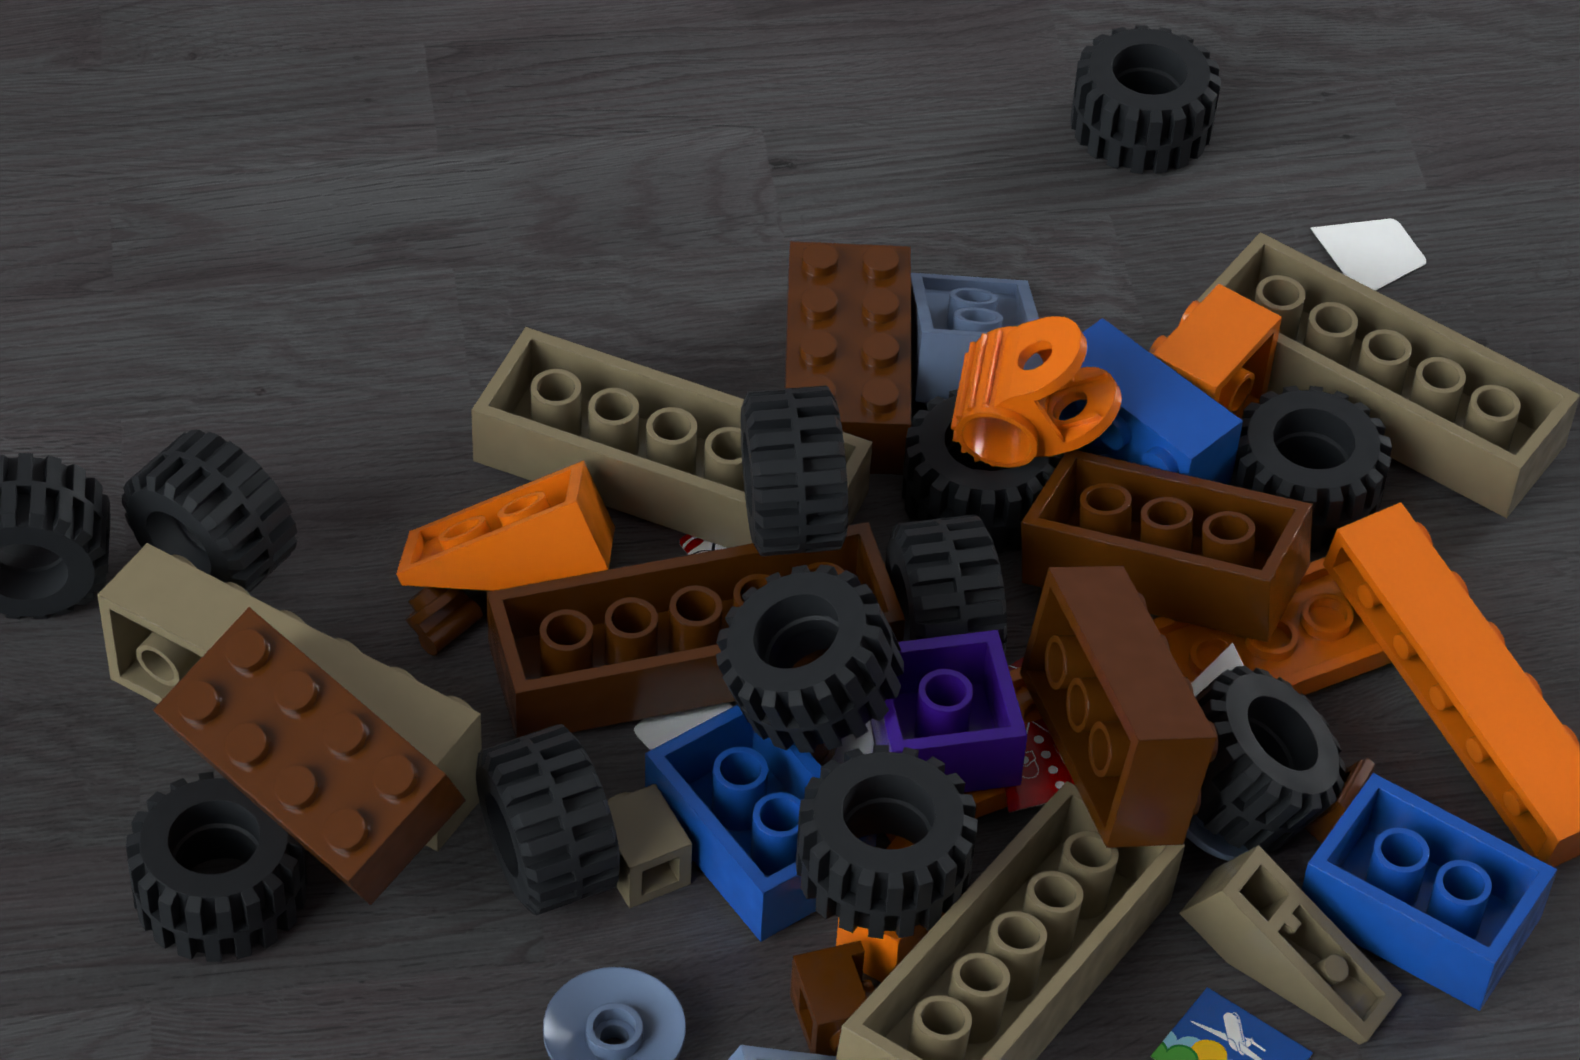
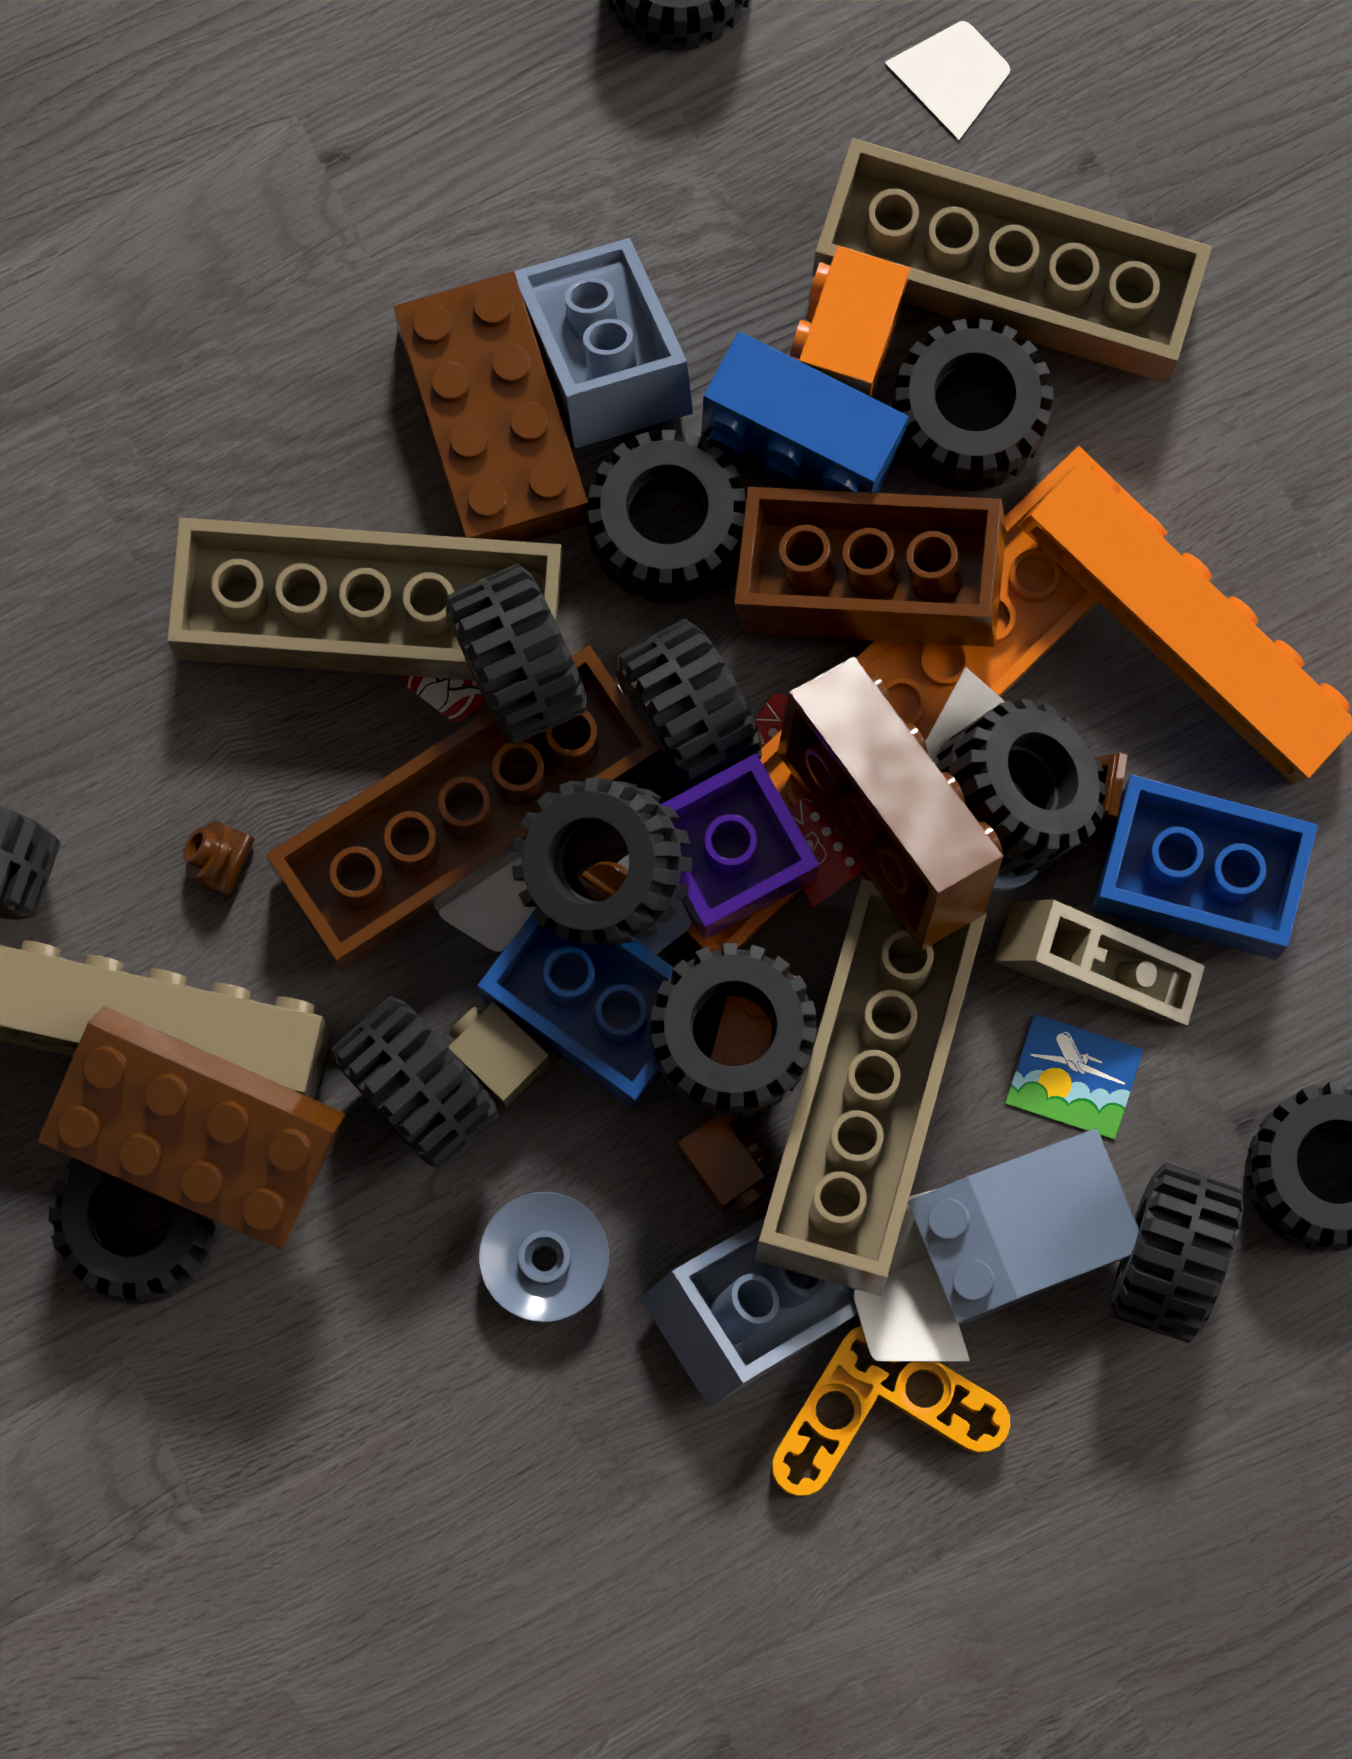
camera: 20 degrees left, 30 degrees up
(516, 538) = (259, 767): orange slope -> none
(1014, 413) = (693, 464): orange piece -> none

